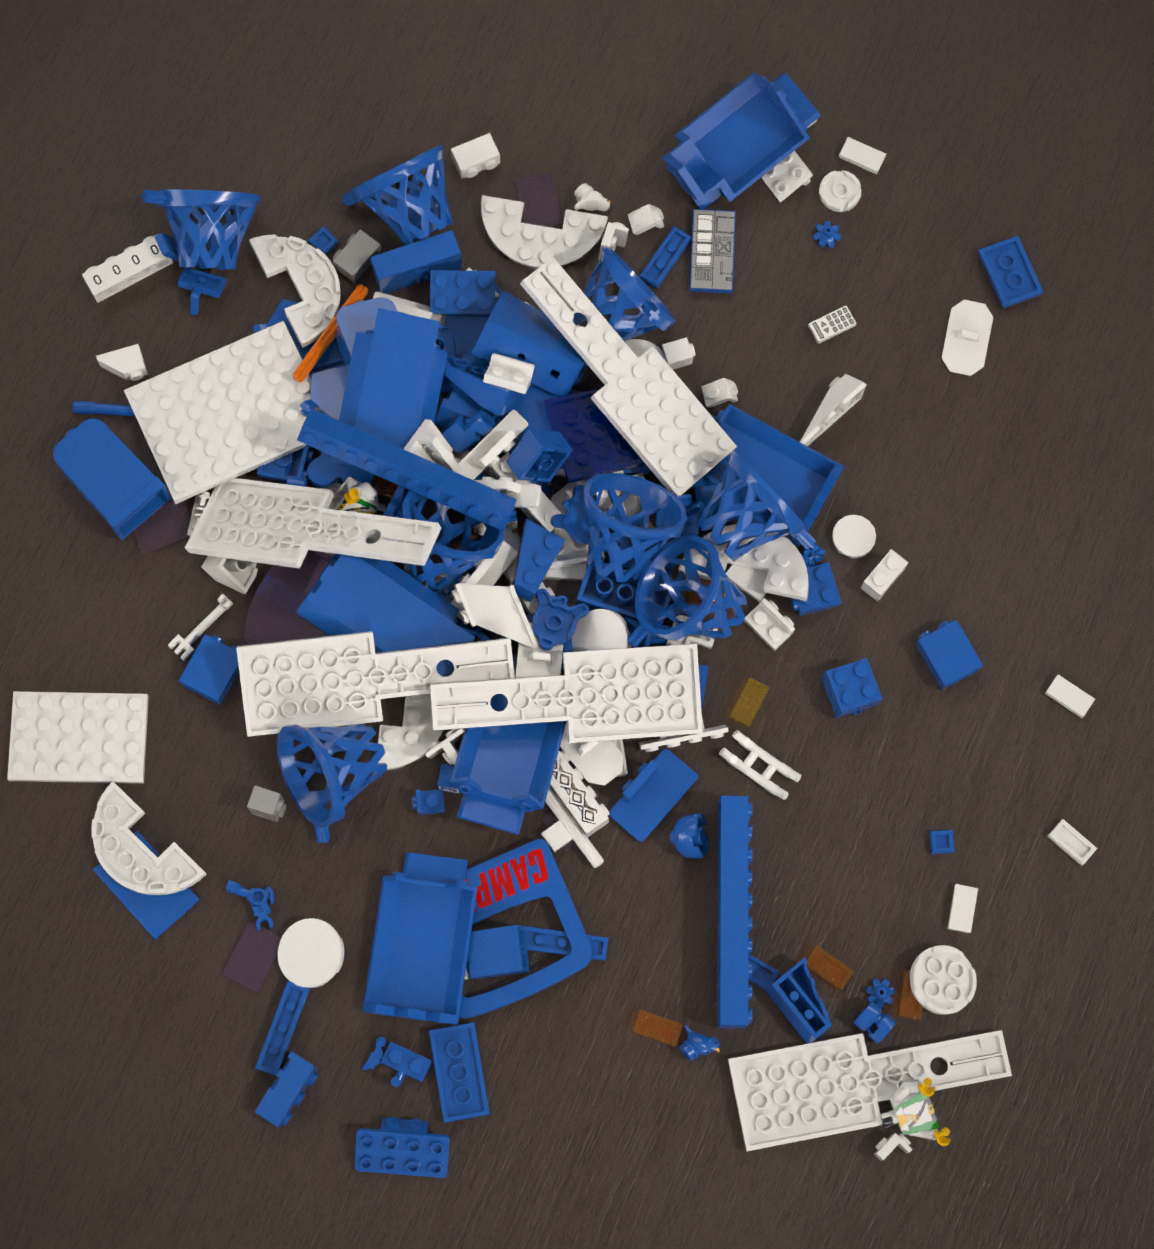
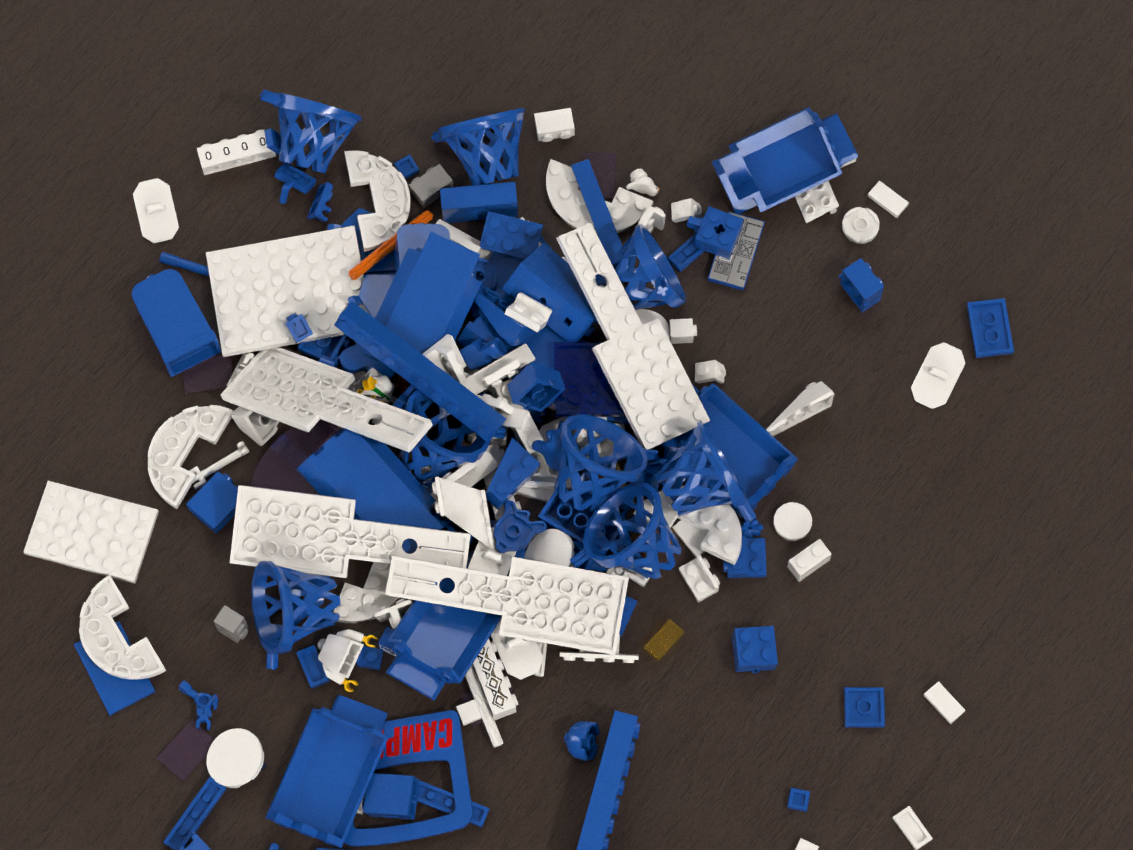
camera: 20 degrees right, 5 degrees down
(53, 355) = (155, 210): none -> white shield
(124, 362) = (214, 230): white slope -> none
(146, 613) = (174, 442): none -> white plate
(238, 295) = (322, 196): none -> blue plate
(252, 450) = (298, 327): none -> blue bracket
(369, 828) = (312, 667): none -> blue tile
(398, 807) = (340, 654): none -> white torso
(548, 236) = (597, 207): none -> blue tile
(652, 794) = (559, 697): blue bracket -> none
(676, 234) = (708, 227): none -> blue hinge
(756, 752) = (658, 683): white piece -> none
(827, 234) = (839, 259): blue plant -> none
(832, 324) = (822, 337): white tile -> none
(861, 256) = (861, 284): none -> blue brick
(948, 654) = (847, 641): blue brick -> none
(985, 722) = (864, 707): none -> blue tile

